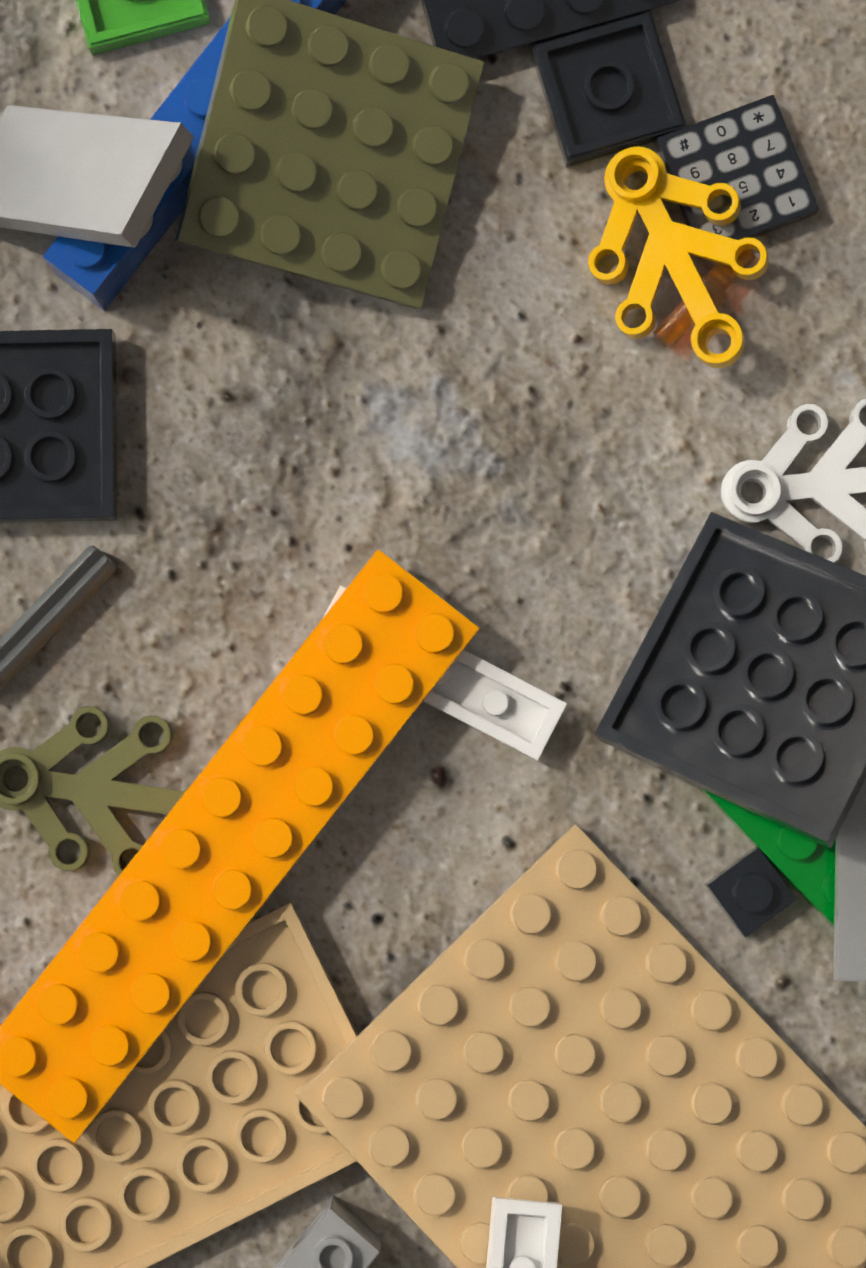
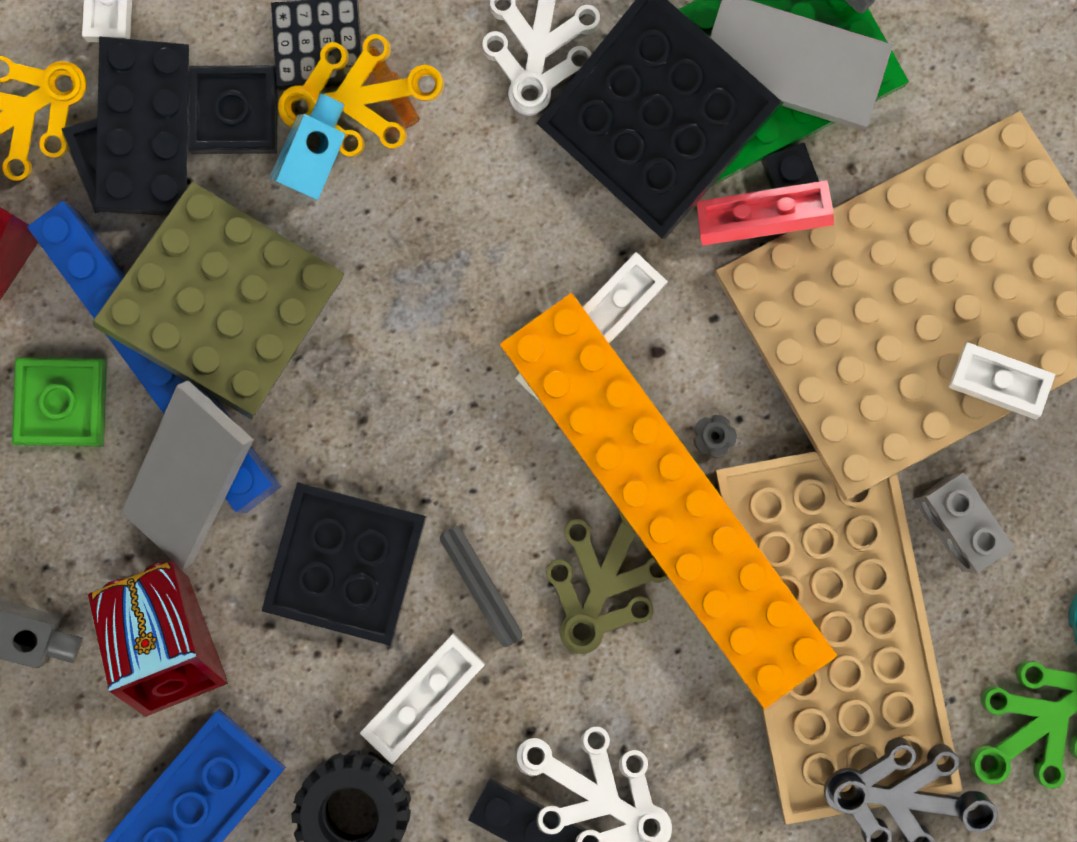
camera: 75 degrees left, 0 degrees up
(357, 888) = (704, 442): none -> dark grey plate
(543, 209) = (299, 166): none -> medium azure torso
(675, 870) = (765, 213): none -> coral plate

